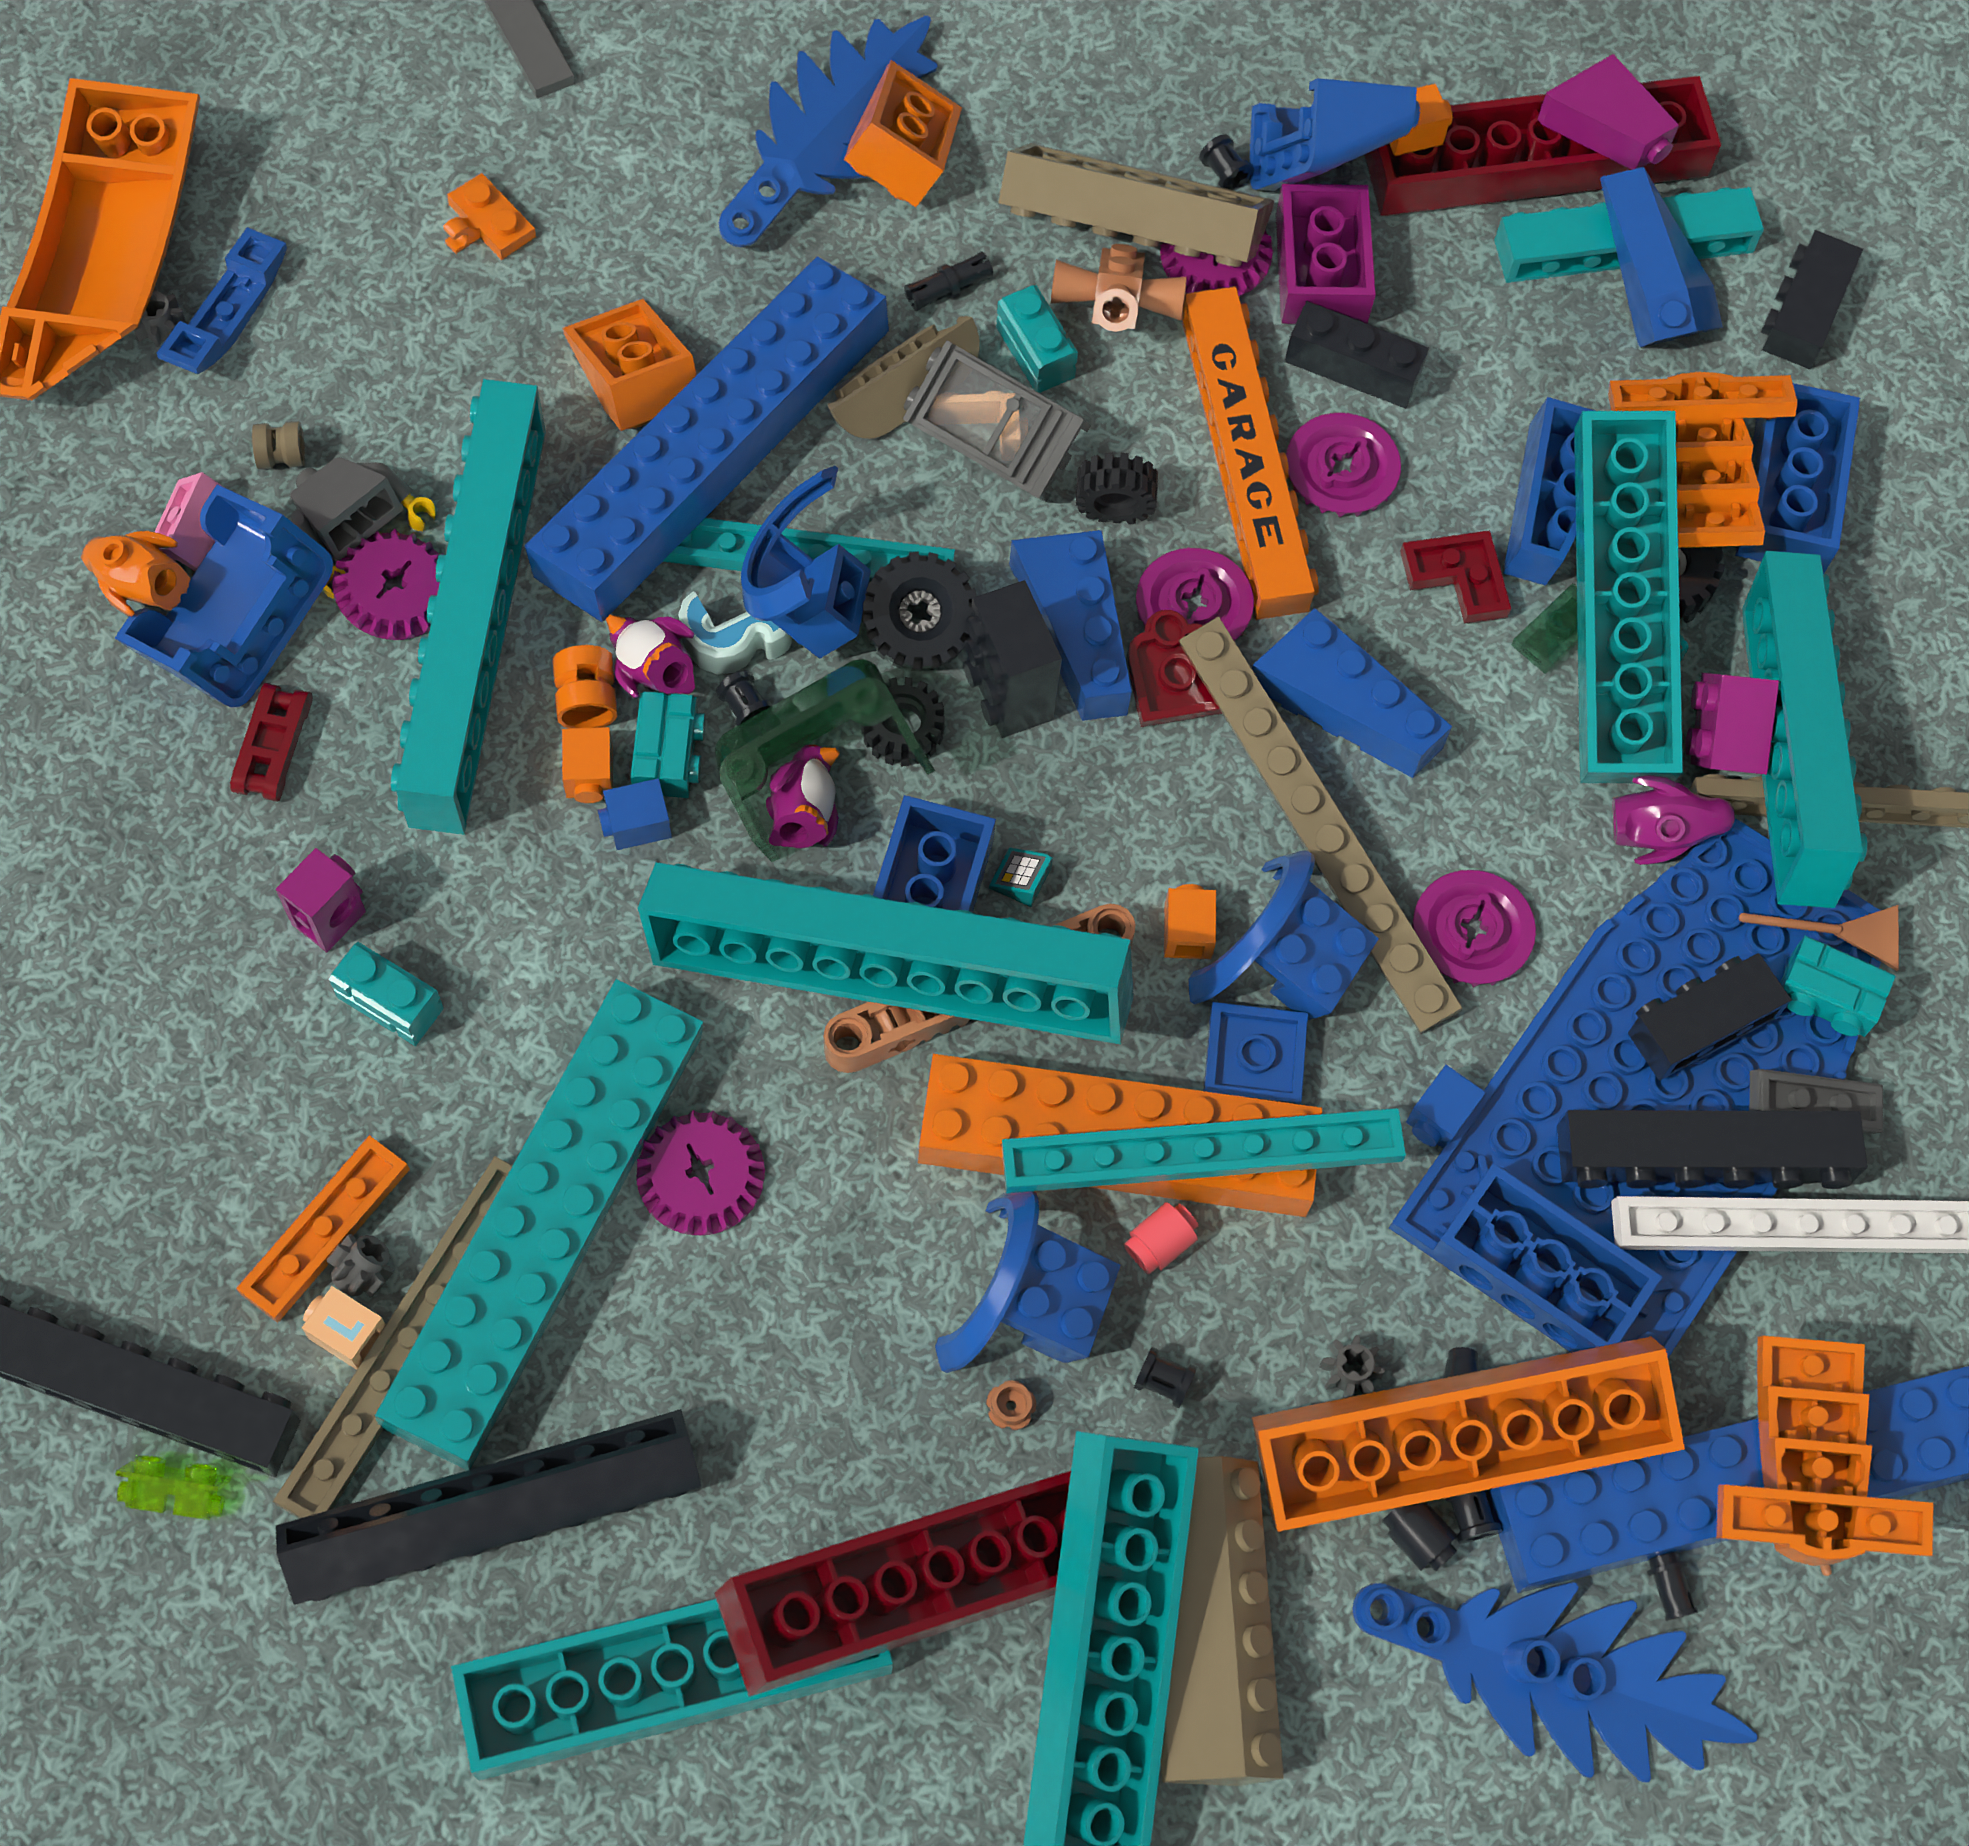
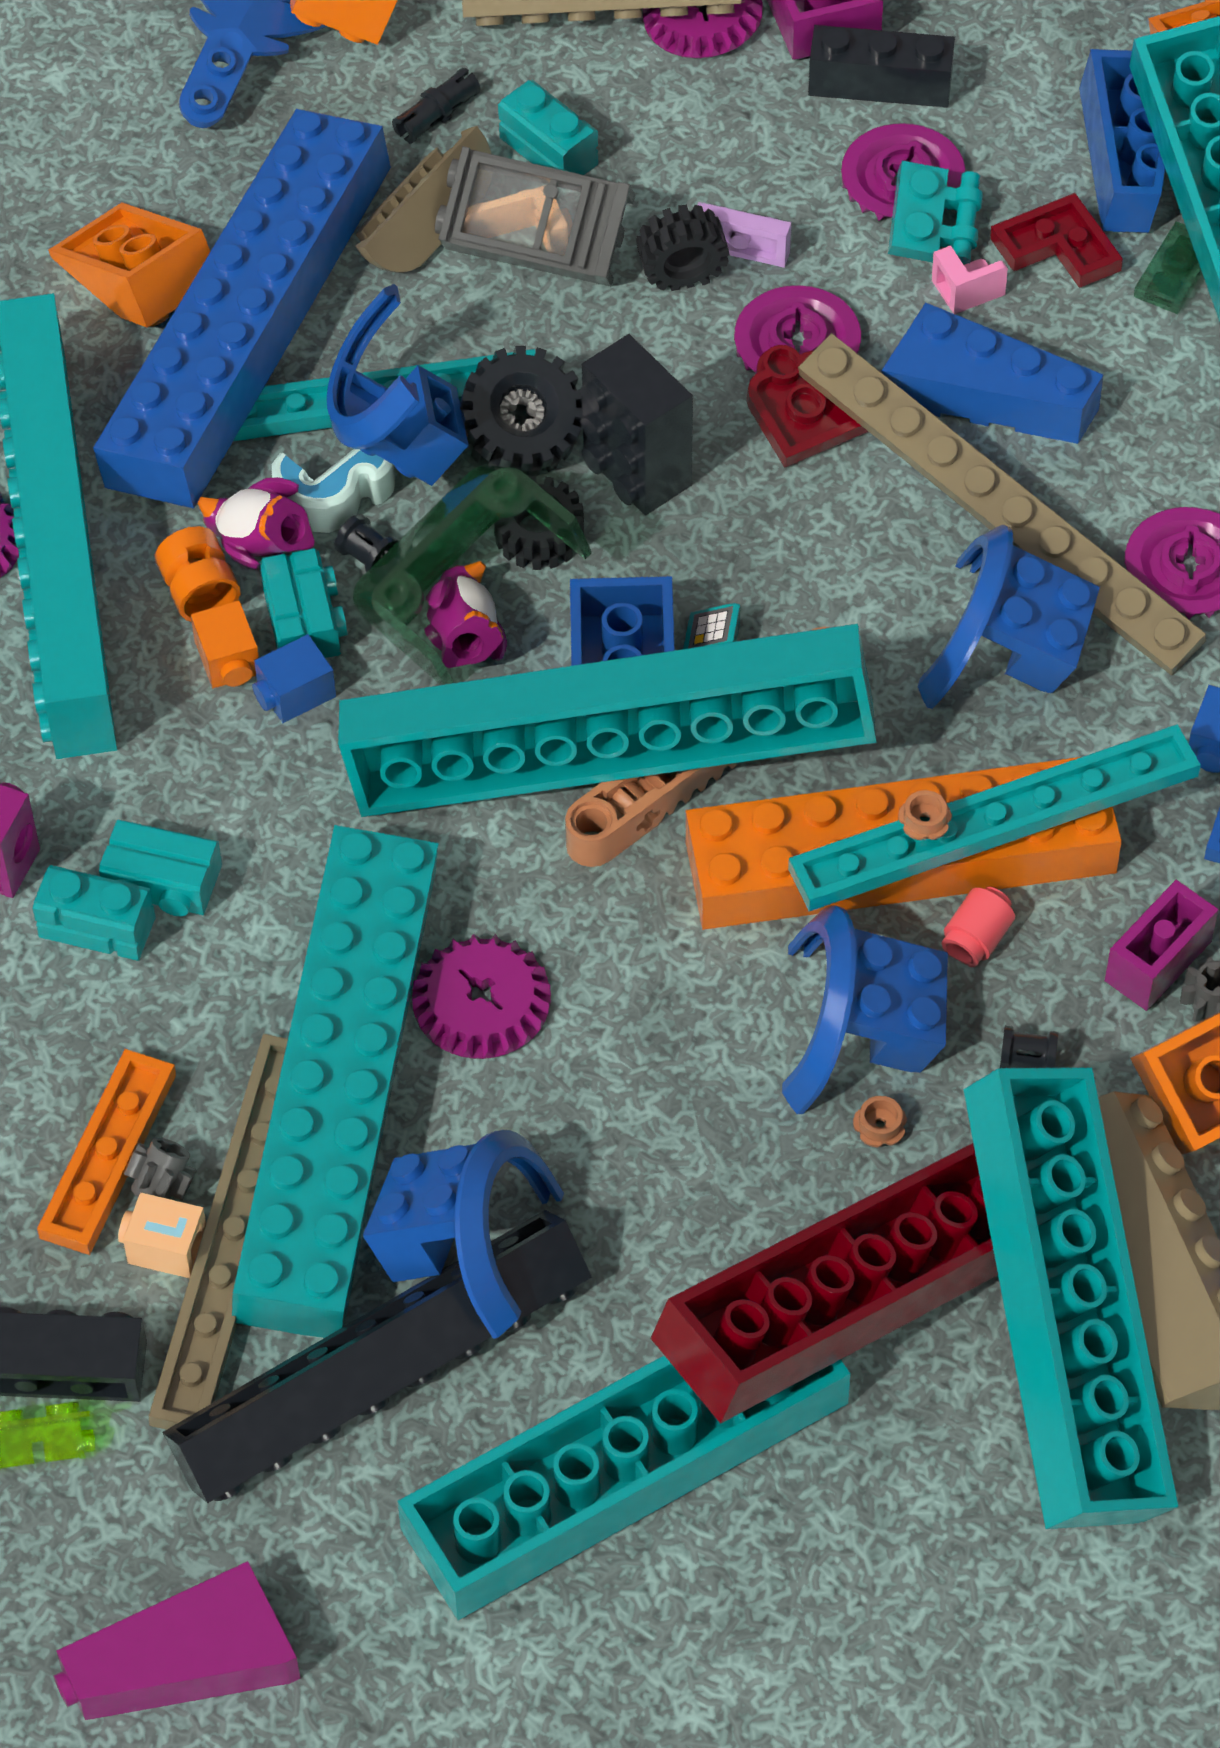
camera: 10 degrees left, 10 degrees down
(230, 1738) = (181, 1650): none -> magenta slope
(459, 966) = (170, 863): none -> teal brick
(577, 1391) = (447, 1197): none -> blue piece
(1078, 606) = (725, 421): blue wedge -> none
(1118, 288) = (616, 65): nougat brick -> none
(1139, 1126) = (925, 804): none -> nougat plate
(1182, 490) = (754, 235): none -> lavender plate
(1190, 922) = (902, 630): orange brick -> none
(1247, 453) = (803, 184): orange brick -> none
(1256, 1052) = (1010, 726): blue plate -> none
(1317, 1310) = (1161, 945): none -> magenta brick
(1343, 509) = (919, 212): none -> teal plate
(1366, 590) = (969, 283): none -> bright pink panel

